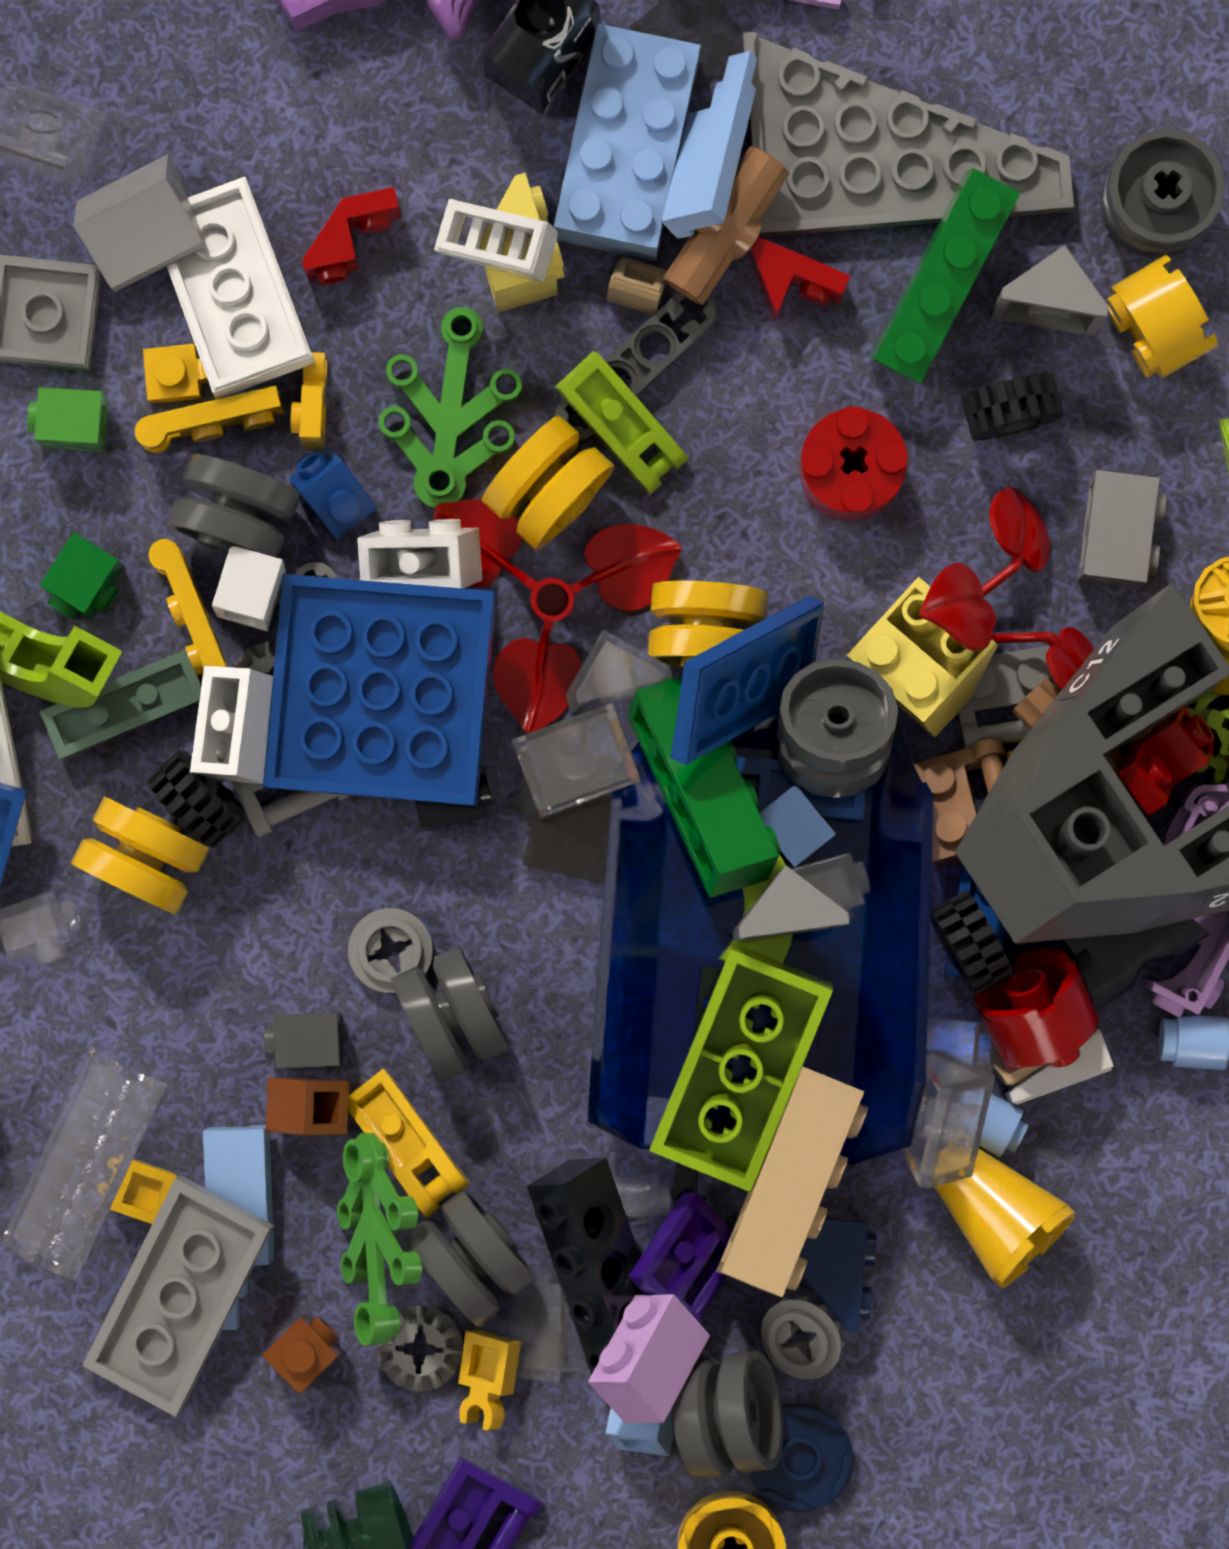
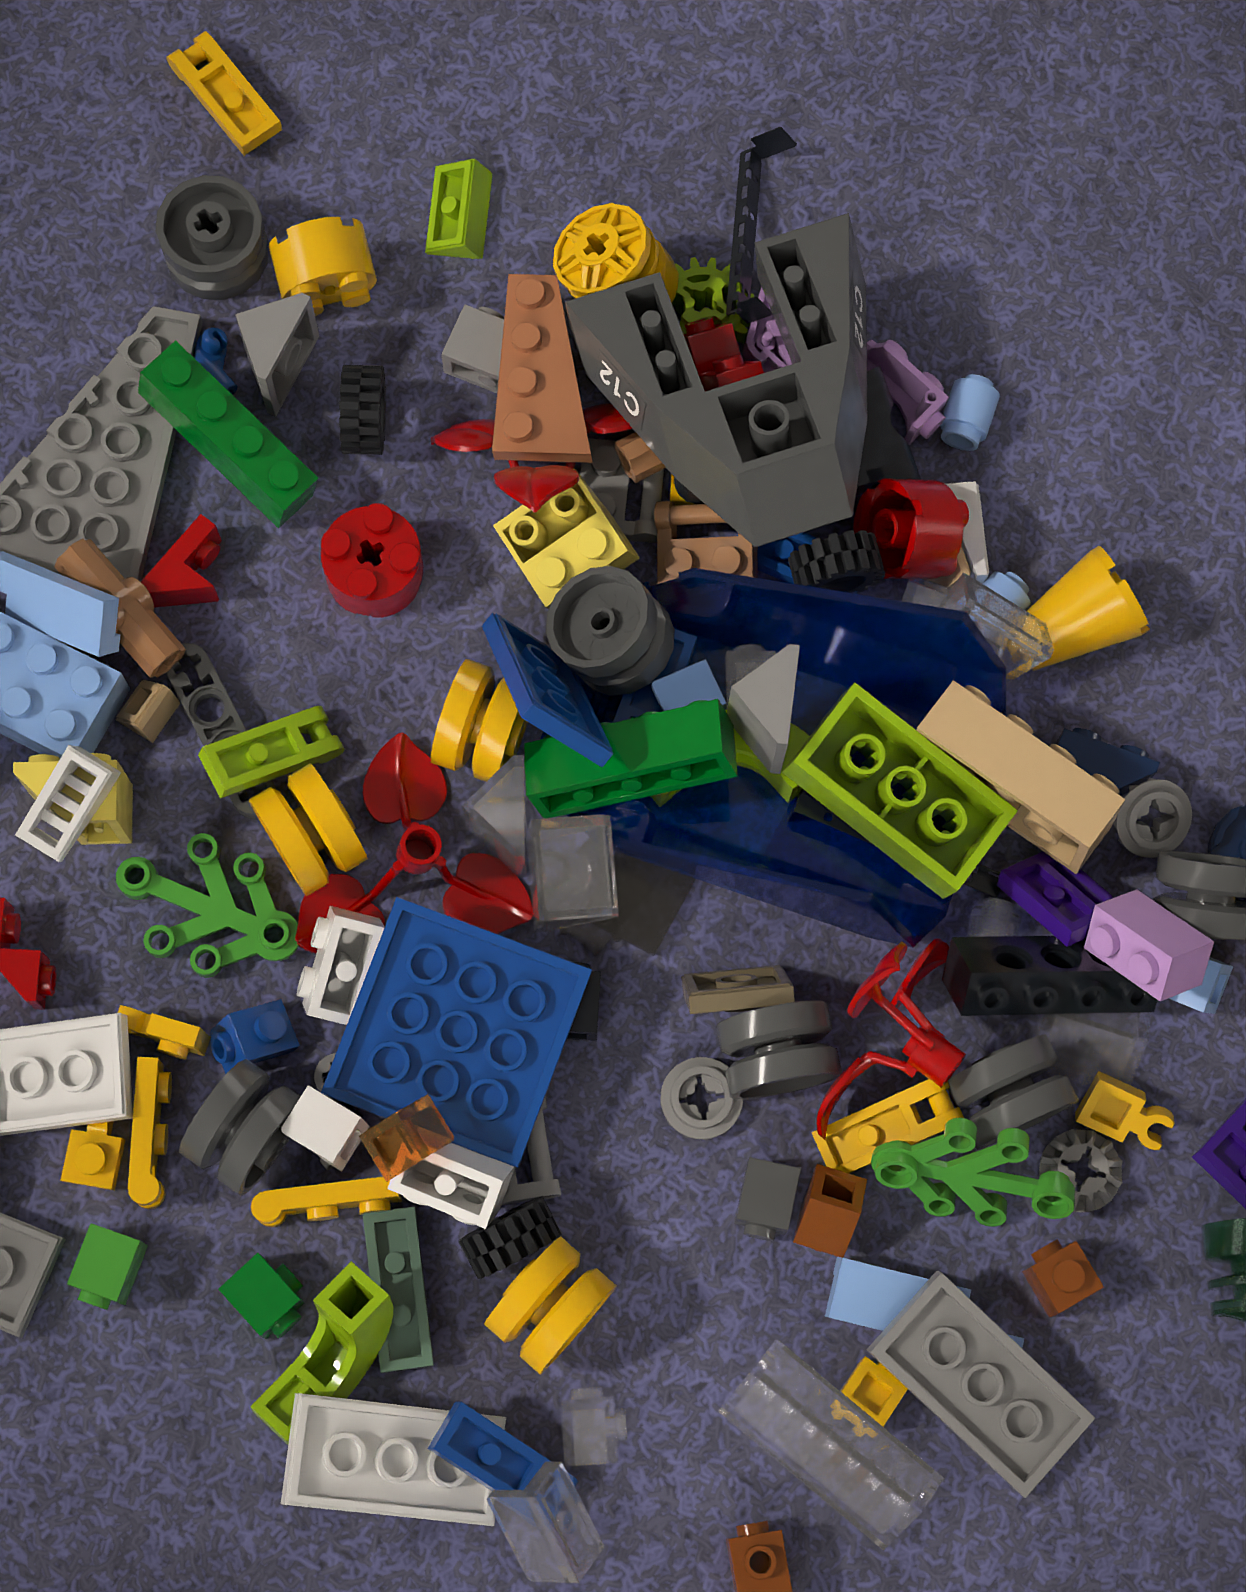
camera: 80 degrees left, 10 degrees down
(254, 670) = (407, 1137): none -> clear orange panel
(480, 1161) = (926, 1048): none -> red plant
(501, 956) = (737, 989): none -> dark tan plate
(1027, 232) = (211, 354): none -> blue arm
(1079, 580) = (538, 388): none -> nougat wing

